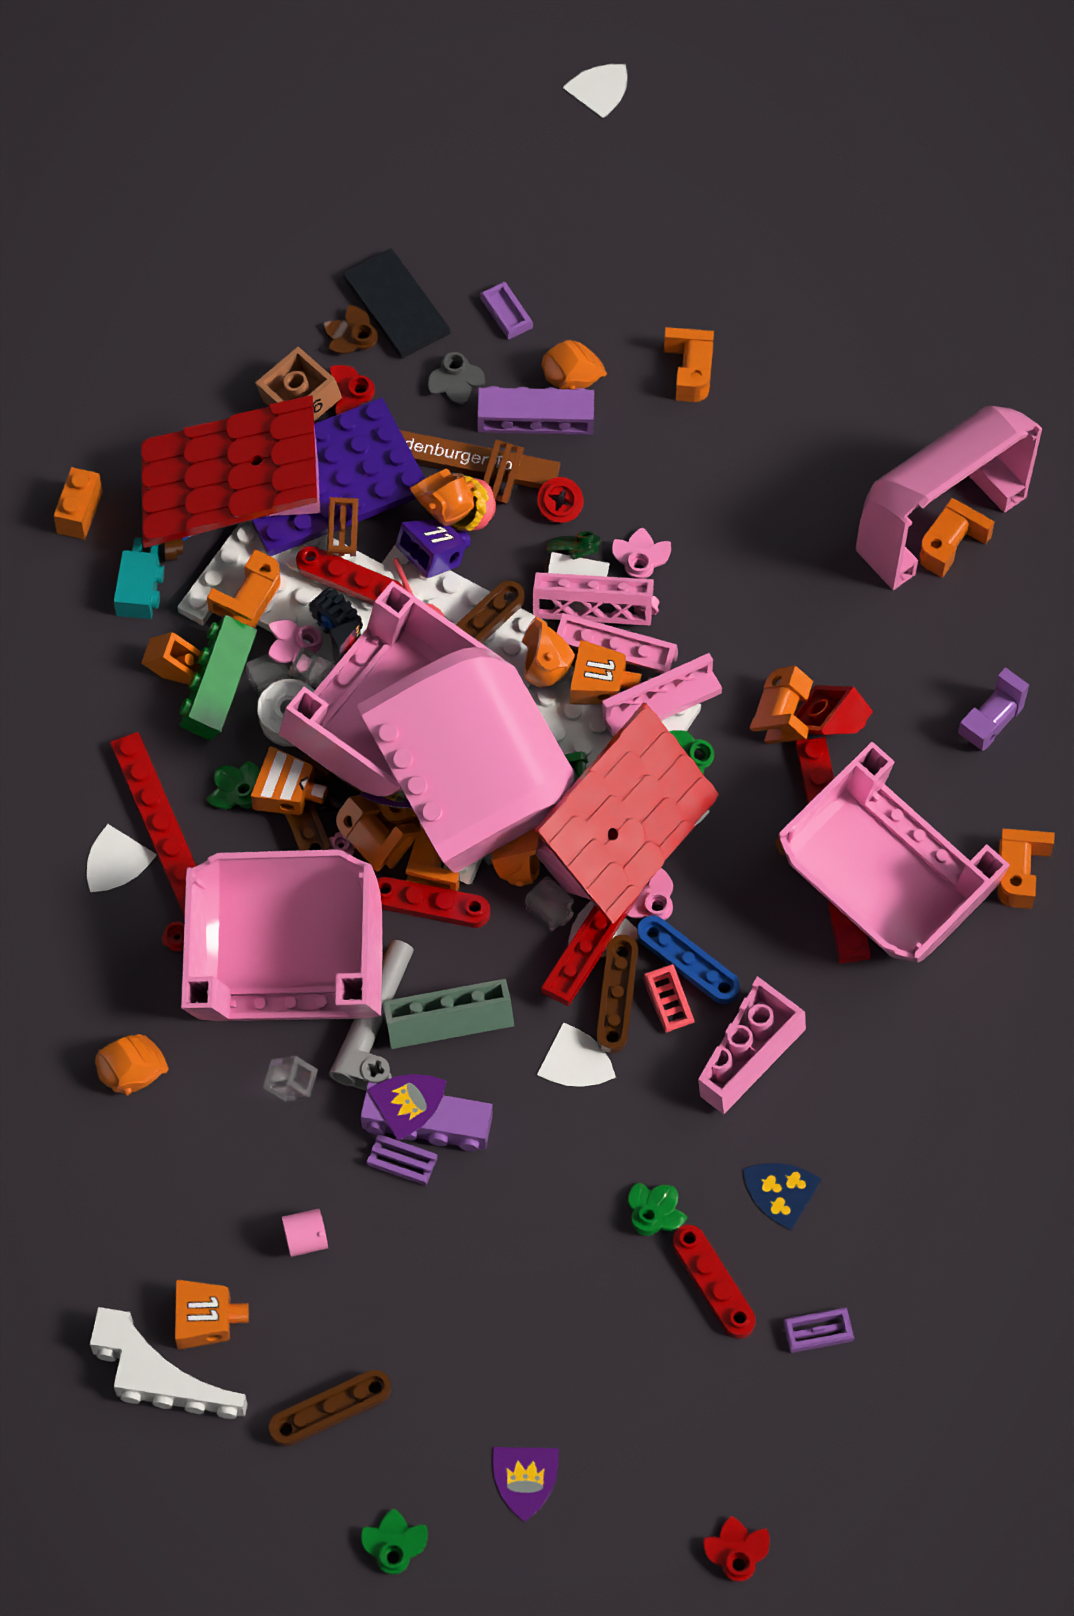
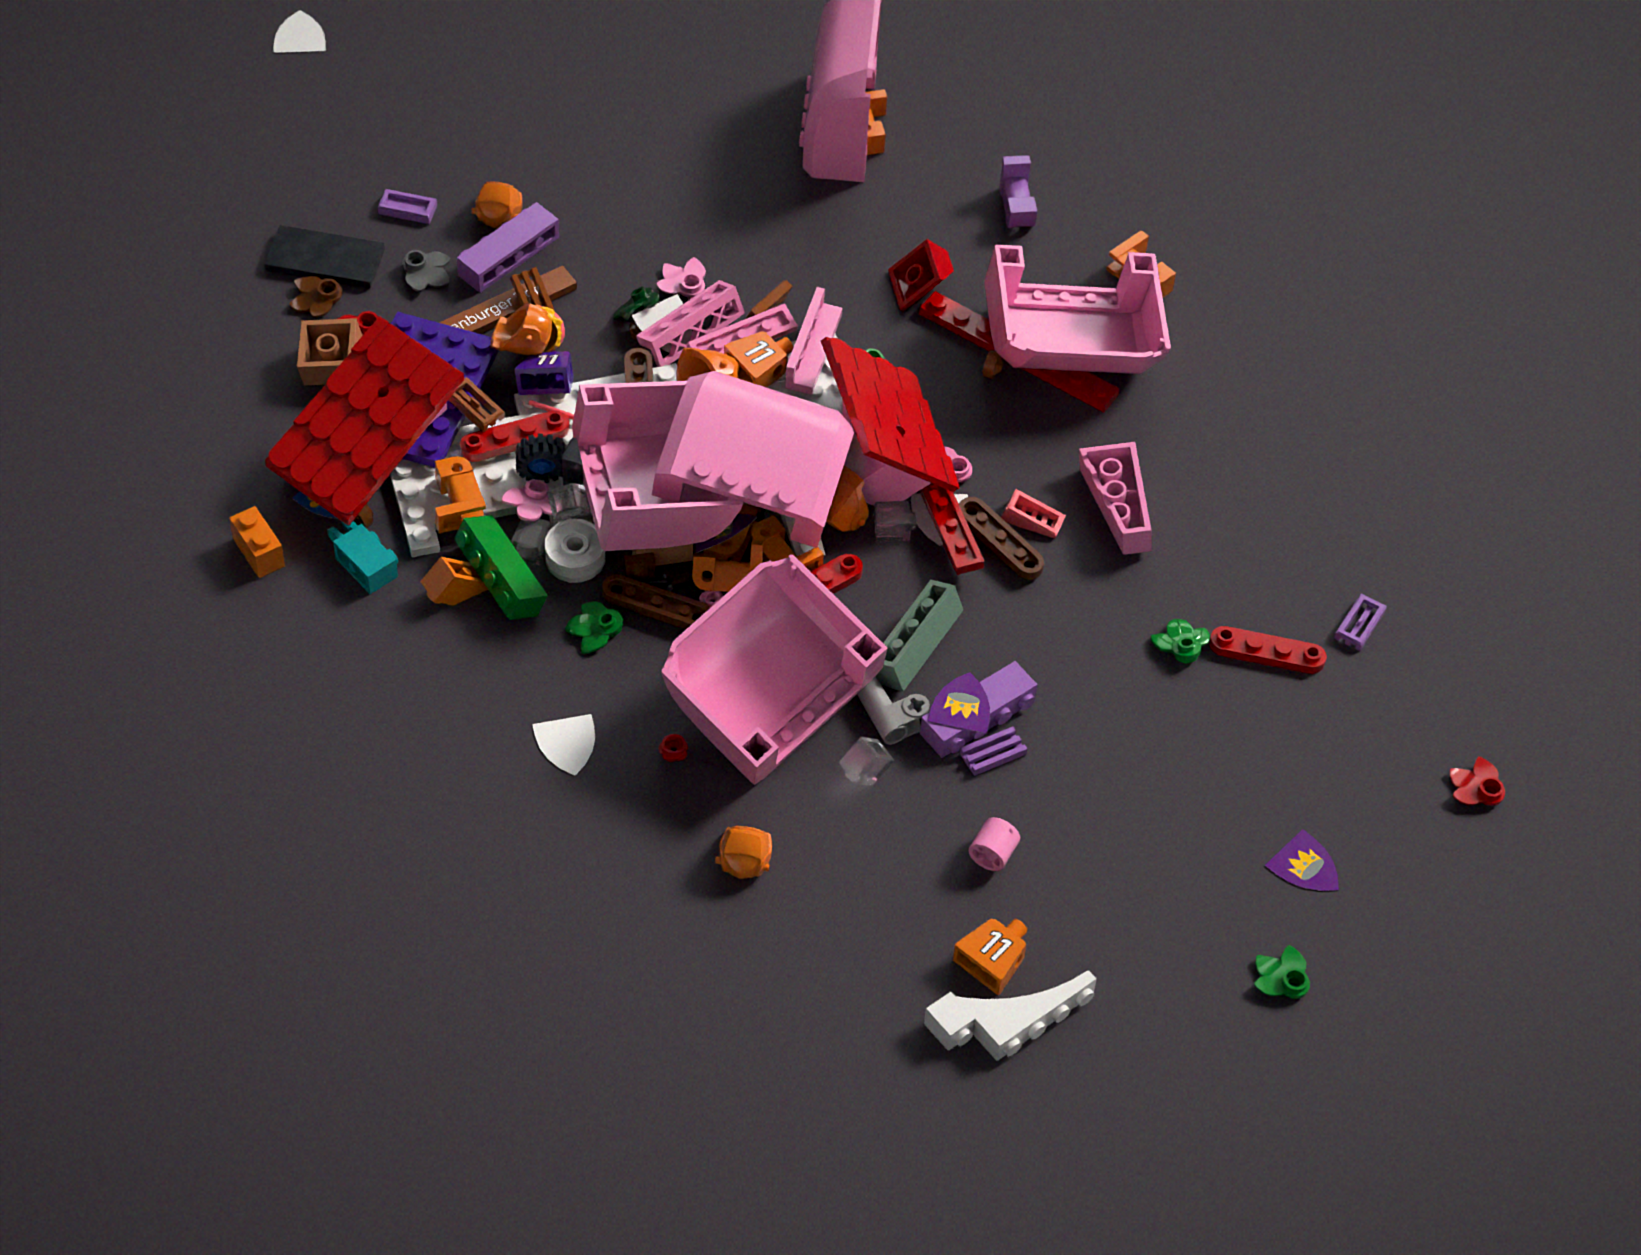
camera: 50 degrees left, 10 degrees down
(155, 812) = (584, 695): red plate -> none
(286, 784) = (636, 588): orange torso -> none
(330, 1408) = (1143, 934): reddish brown plate -> none
(572, 495) = (595, 278): red gear -> none
(576, 1060) = (1021, 600): white sticker -> none
(678, 633) = (773, 299): none -> dark orange tile
(688, 959) = (1029, 480): blue plate -> none
(695, 374) = (576, 140): orange piece -> none
(779, 704) = (887, 292): orange piece -> none
(781, 1190) = (1236, 566): dark blue sticker -> none

